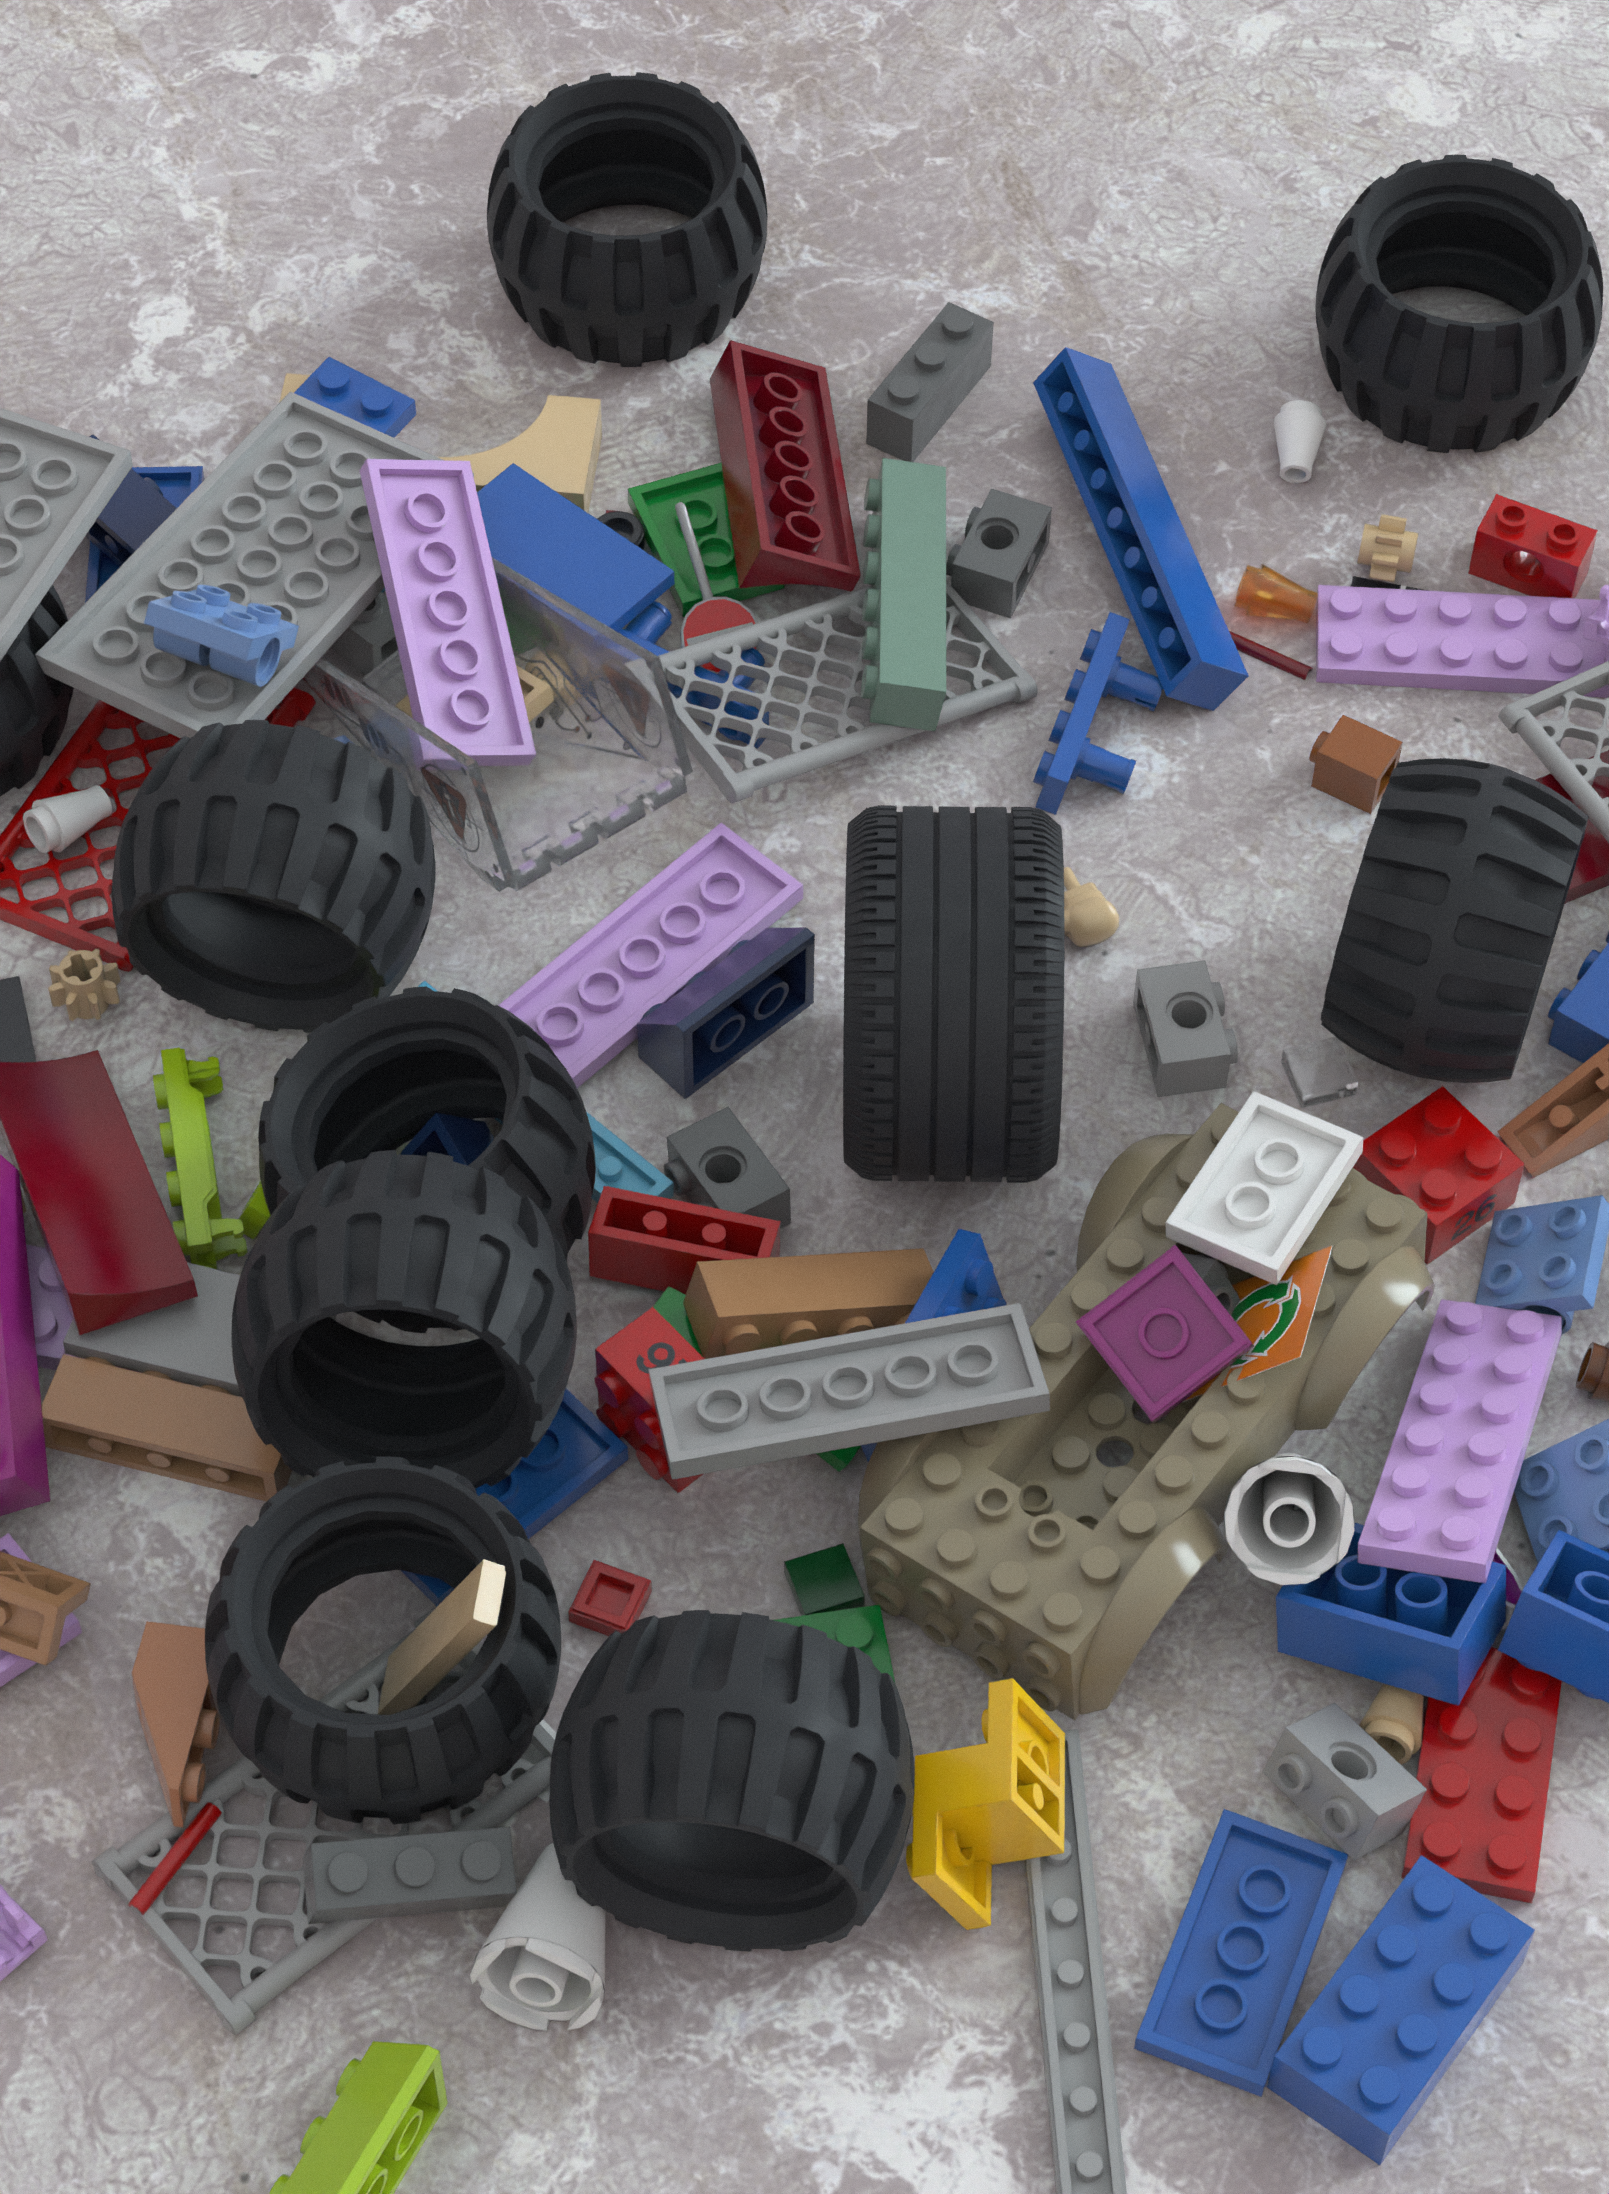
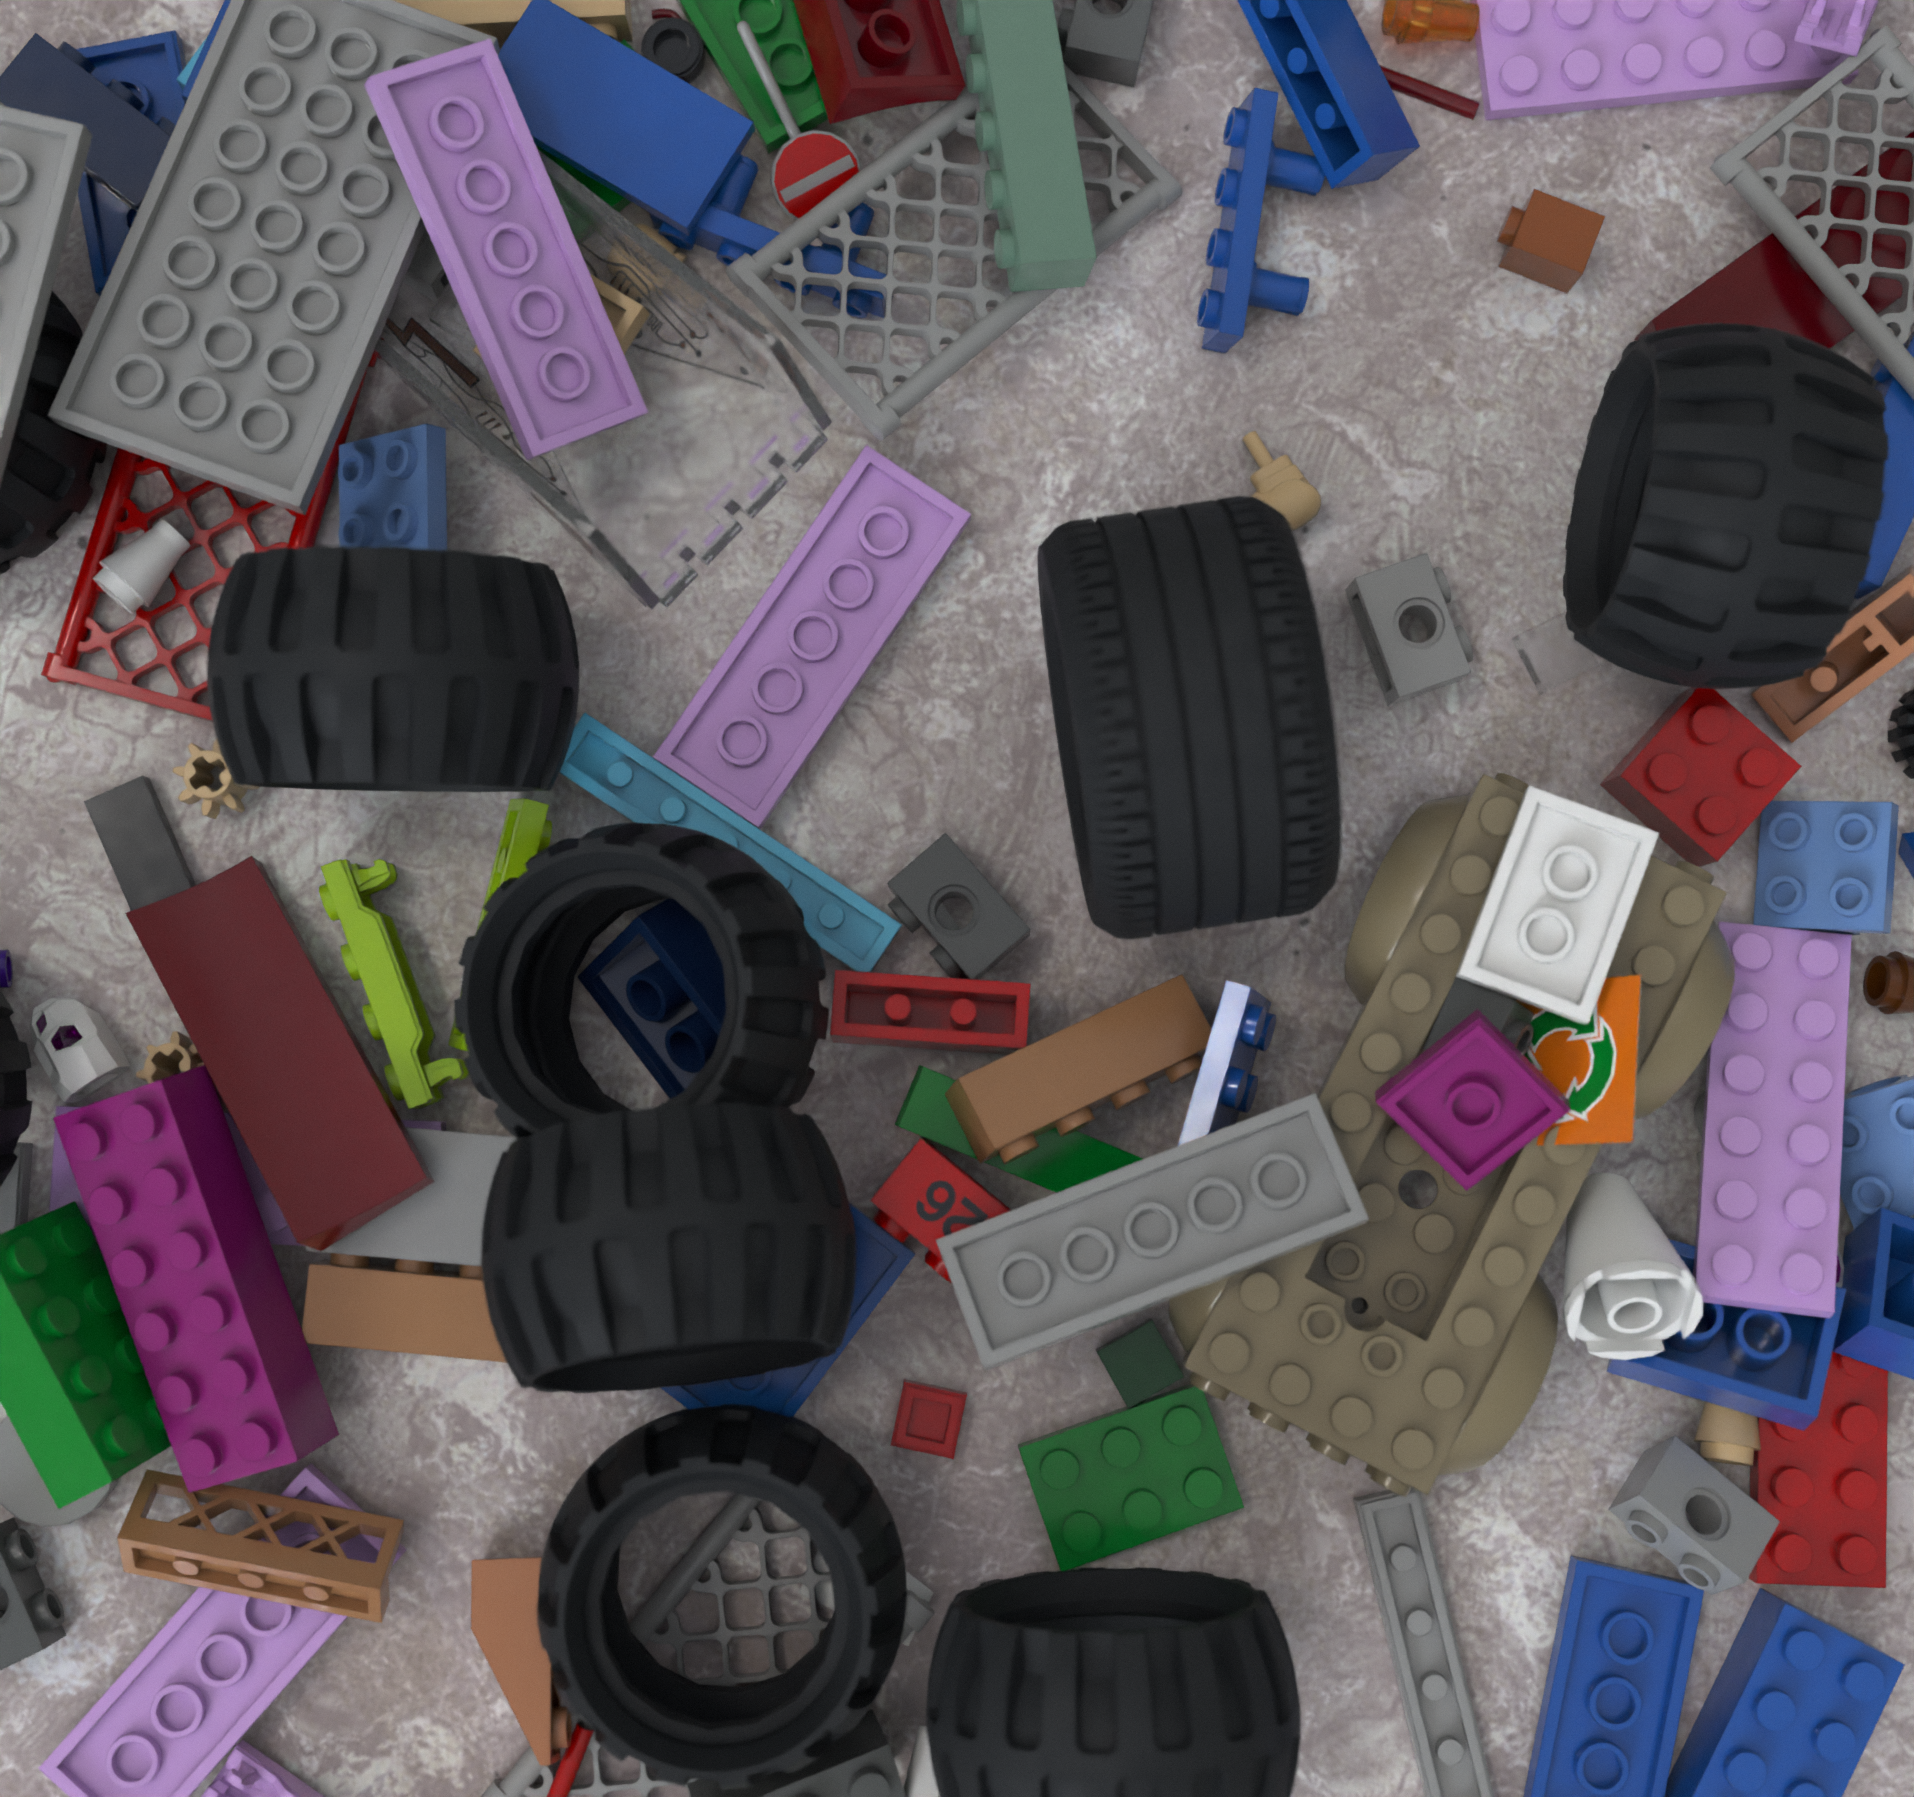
camera: 15 degrees left, 30 degrees up
(221, 633) = (256, 357): medium blue plate -> none
(443, 1638) = (786, 1590): tan tile -> none
(729, 1008) = (916, 690): dark blue slope -> none
(988, 1804) = (1356, 1625): yellow bracket -> none

